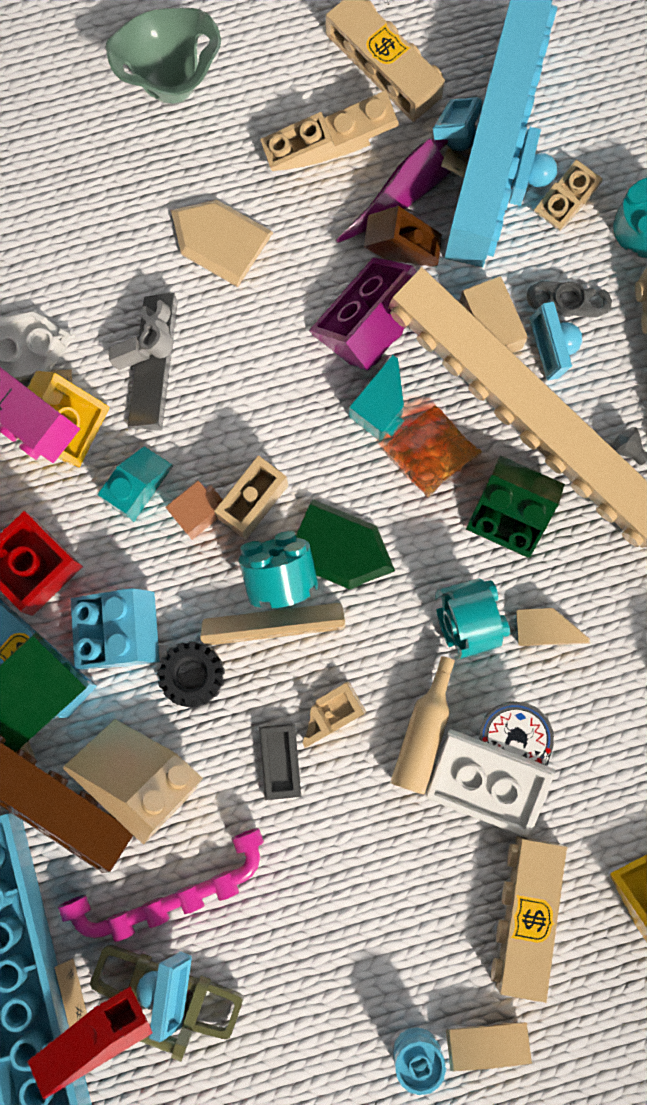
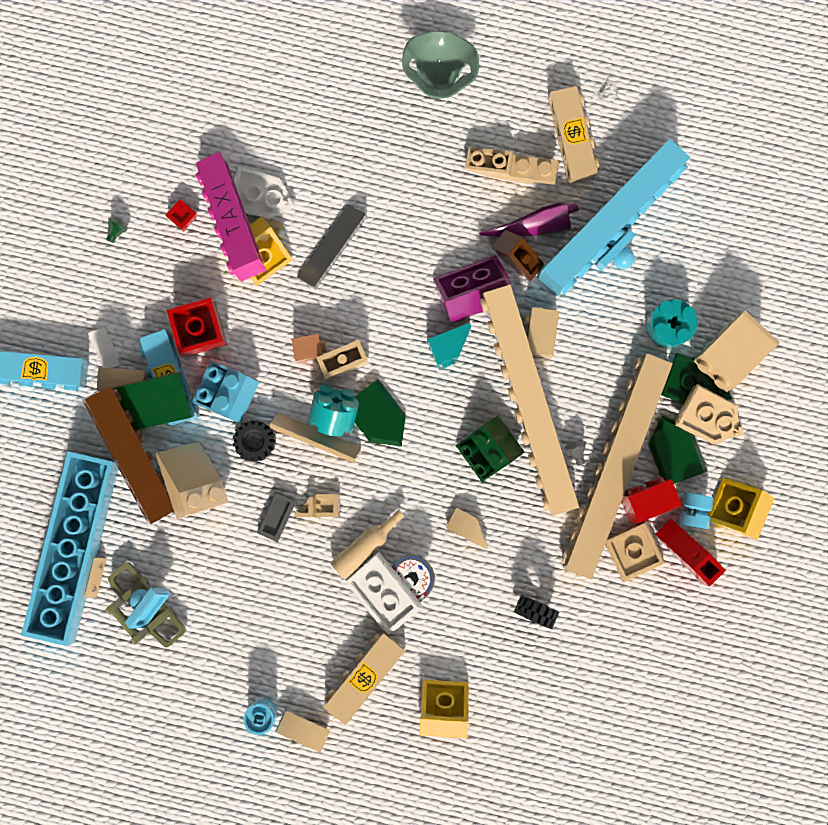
camera: 25 degrees right, 5 degrees up
(90, 1042) = (93, 607): red slope -> none
(135, 482) = (283, 313): teal slope -> none
(153, 340) = (338, 237): light grey bar -> none
(157, 910) = (185, 562): dark pink bar -> none
(219, 239) = (412, 193): tan tile -> none
(430, 450) = (461, 389): clear orange slope -> none
(455, 162) = (574, 225): tan sticker -> none
(458, 123) = (591, 201): medium azure tile -> none
(471, 617) = (426, 497): teal brick -> none
(554, 340) = (570, 365): medium azure tile -> none
(568, 195) = (631, 282): tan slope -> none
(583, 308) = (600, 354): dark grey piece -> none

